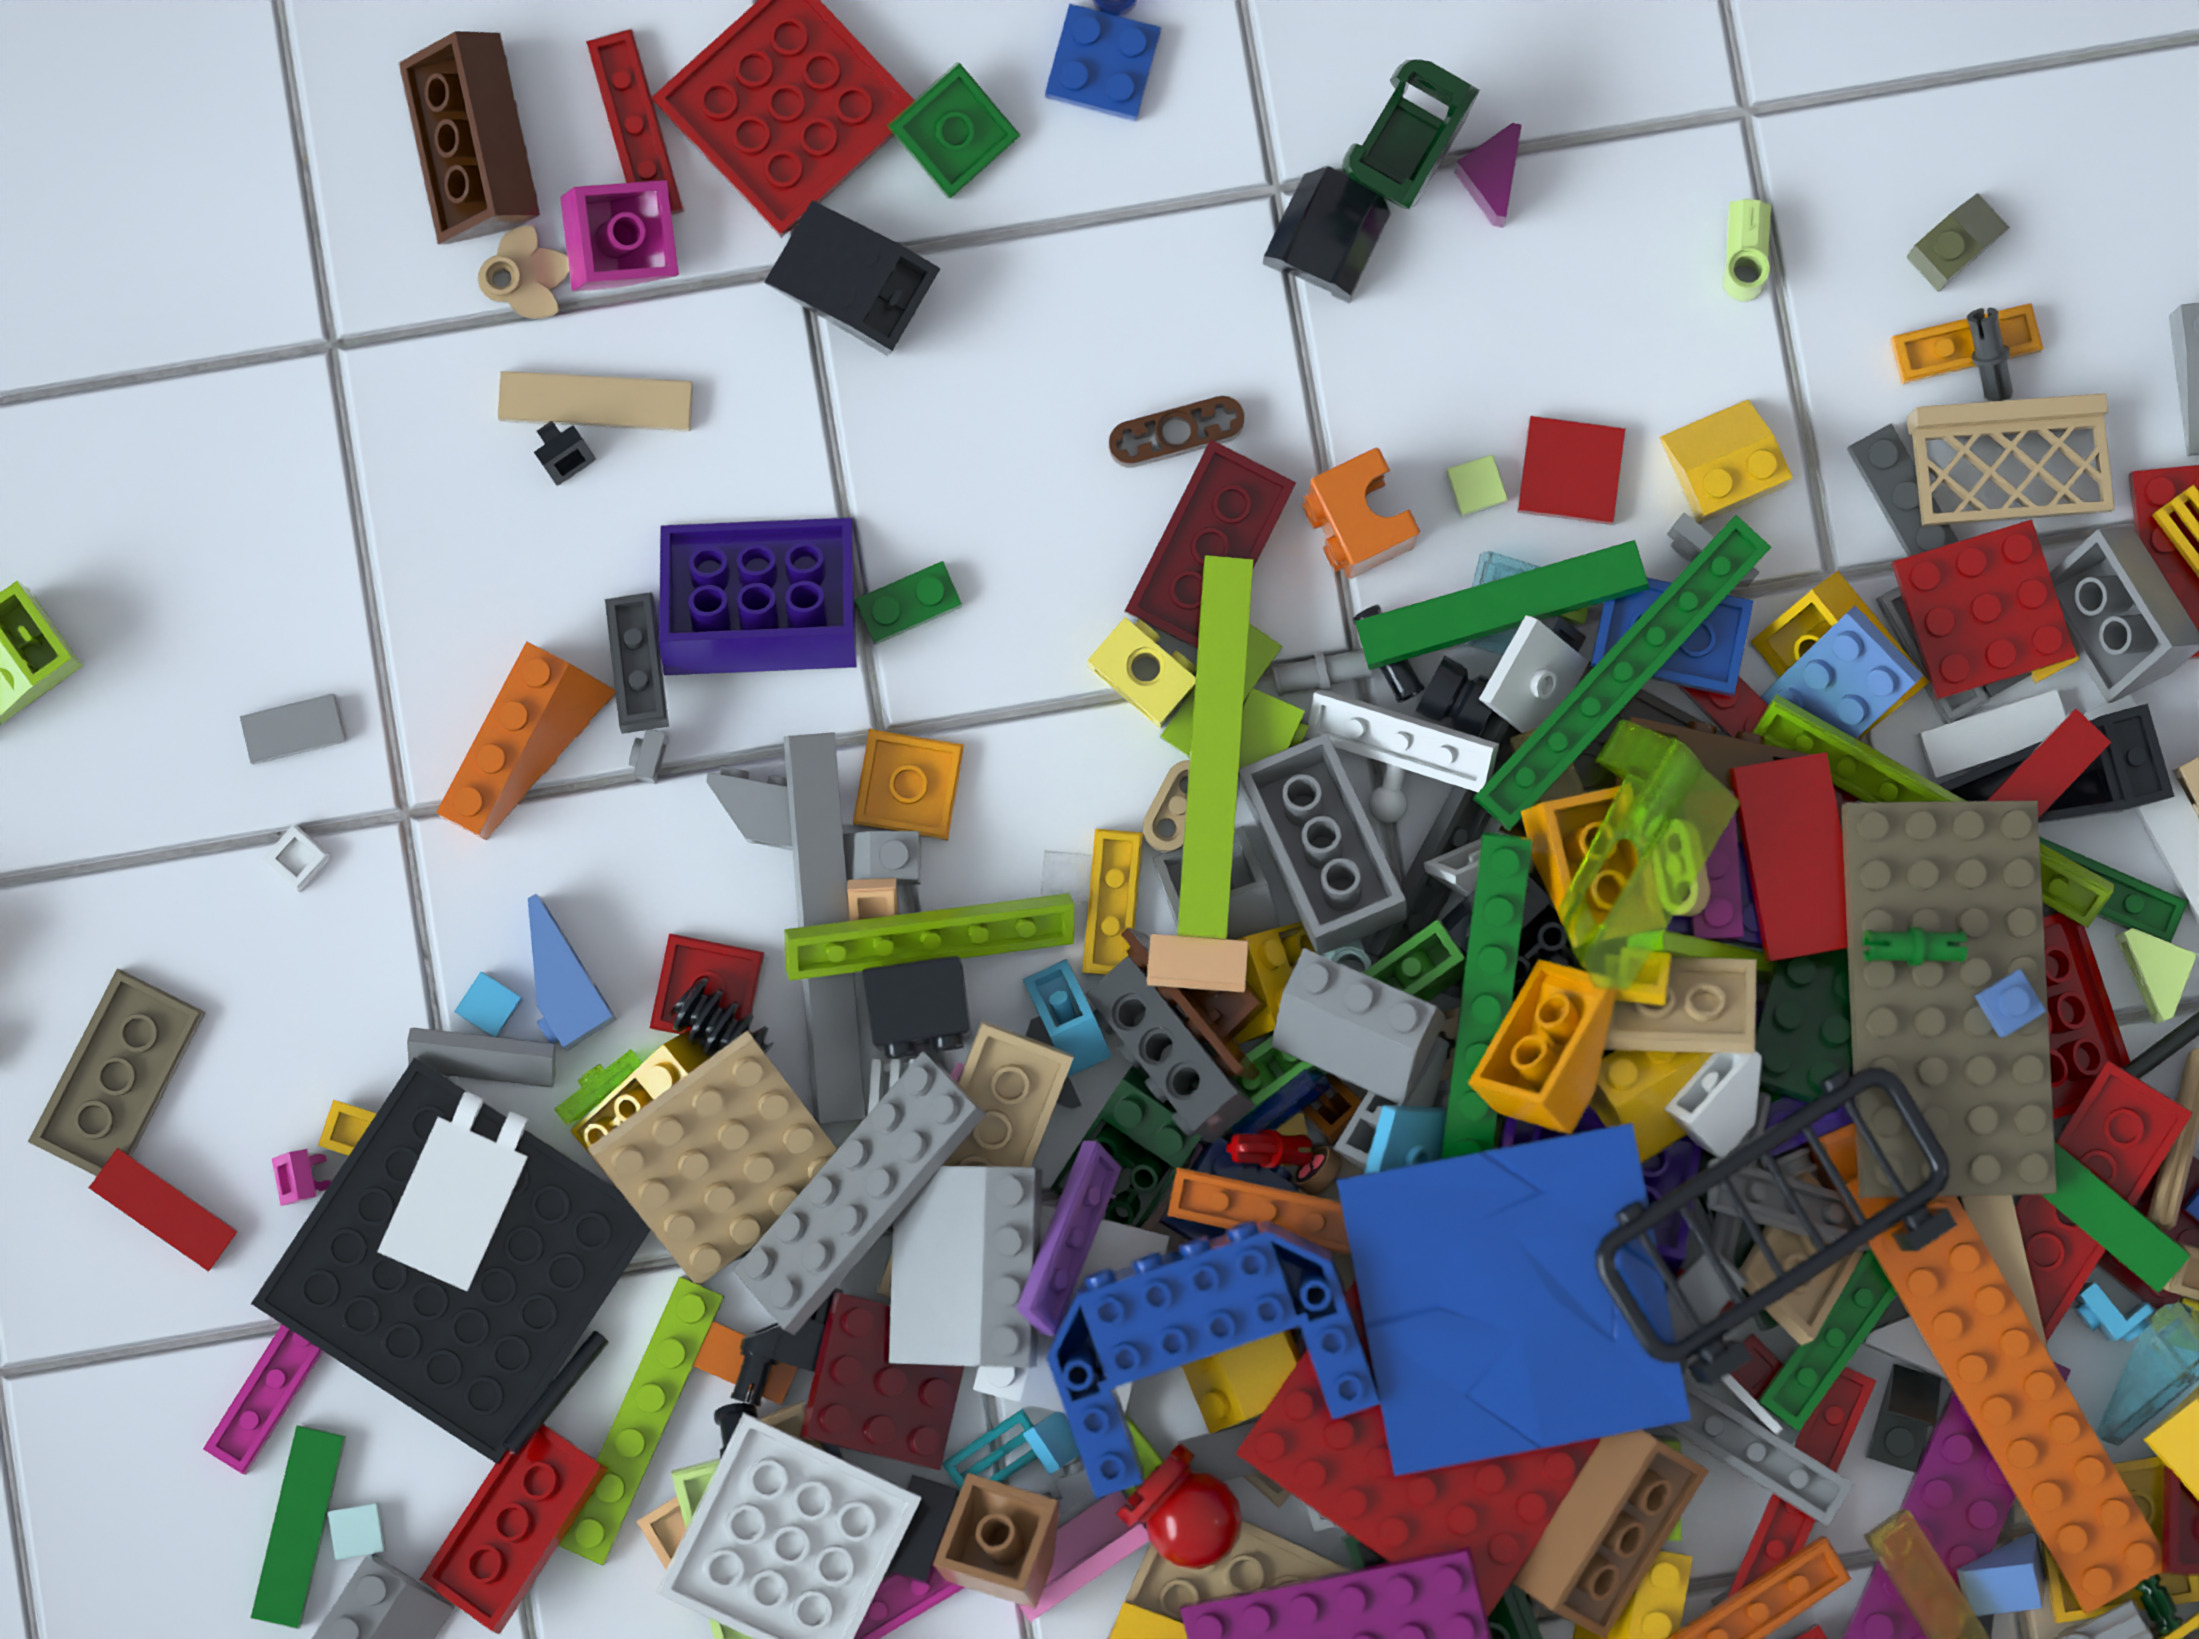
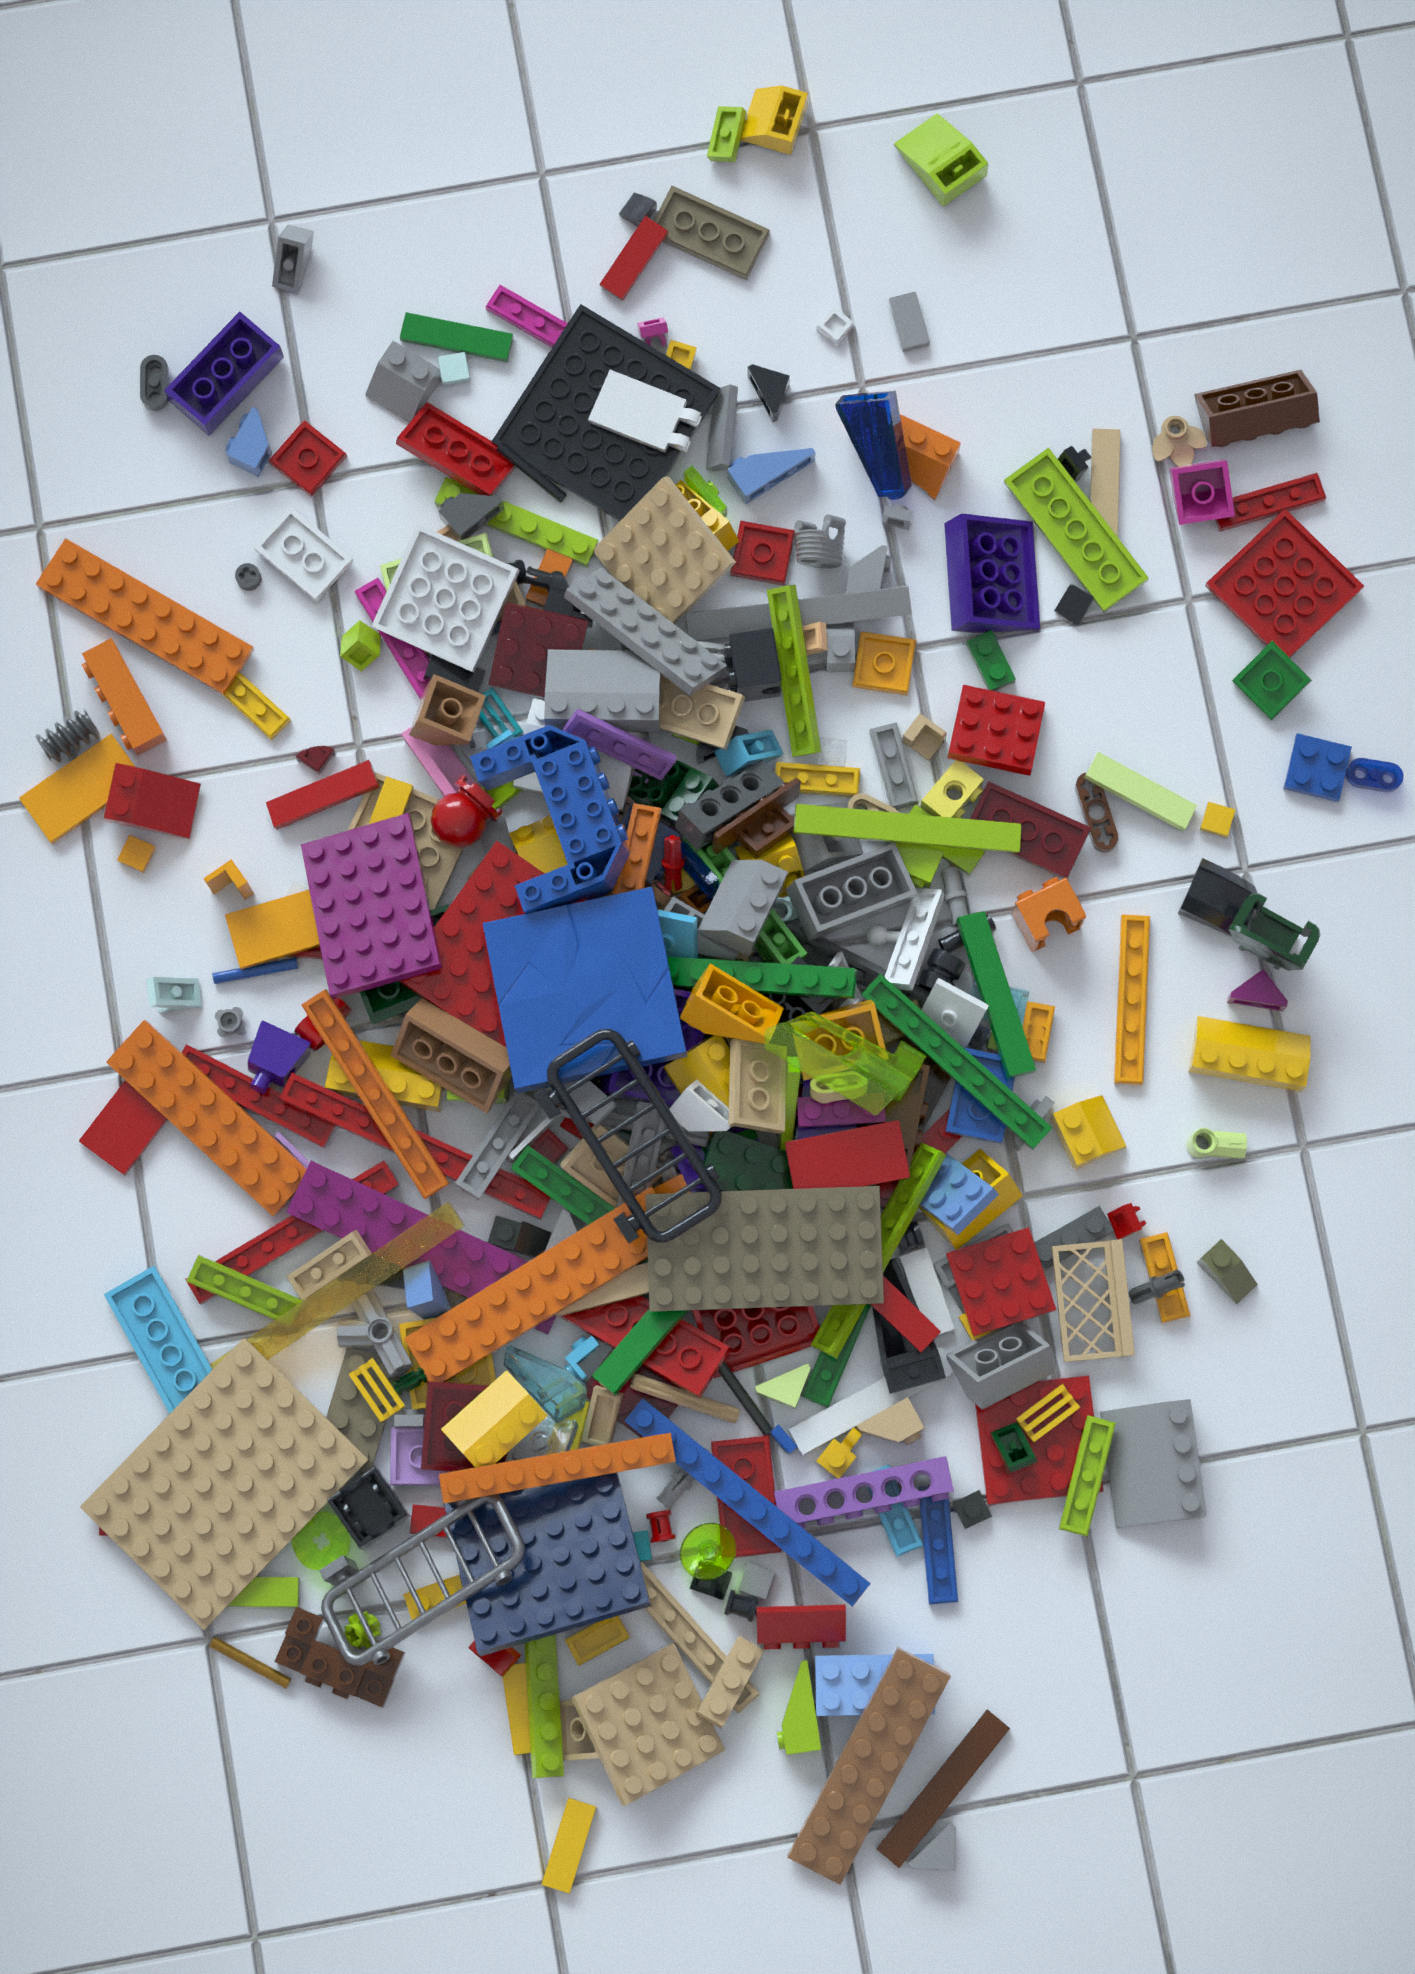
camera: 90 degrees right, 5 degrees down
(69, 1202) = (637, 208): none -> black slope
(412, 971) = (770, 388): none -> black slope
(488, 1005) = (752, 432): medium azure tile -> none
(520, 782) = (878, 438): none -> clear blue slope
(634, 1504) = (469, 513): none -> dark grey slope
(636, 663) = (947, 505): dark grey tile -> none
(680, 451) = (1076, 530): none -> lime plate
(708, 889) = (816, 547): none -> light grey piece
(711, 1020) = (742, 550): black piece -> none
(811, 458) = (1074, 604): none -> black slope
(852, 277) = (1180, 623): black slope -> none
(1036, 594) = (996, 730): none -> red plate
(1043, 718) = (924, 737): none -> tan panel
(1091, 771) = (893, 766): none -> light grey tile
(1144, 356) = (1140, 791): none -> yellowish green tile
(1191, 230) = (1217, 819): none -> yellow tile
(1197, 963) = (779, 816): light nougat tile -> none
(1476, 485) = (1069, 986): yellowish green tile -> none
(1498, 382) = (1131, 1000): none -> light orange tile
(1550, 539) = (1037, 1029): none -> light orange plate
(1571, 470) = (1080, 1042): red tile -> none
(1593, 188) = (1250, 1054): none -> yellow slope
(1651, 982) = (771, 1065): yellow plate -> none
(1877, 403) = (1125, 1221): none -> red tile
(1909, 754) = (912, 1238): none -> black wheel
(1914, 946) = (793, 1222): green pin -> none
(2010, 1003) = (761, 1281): medium blue plate -> none

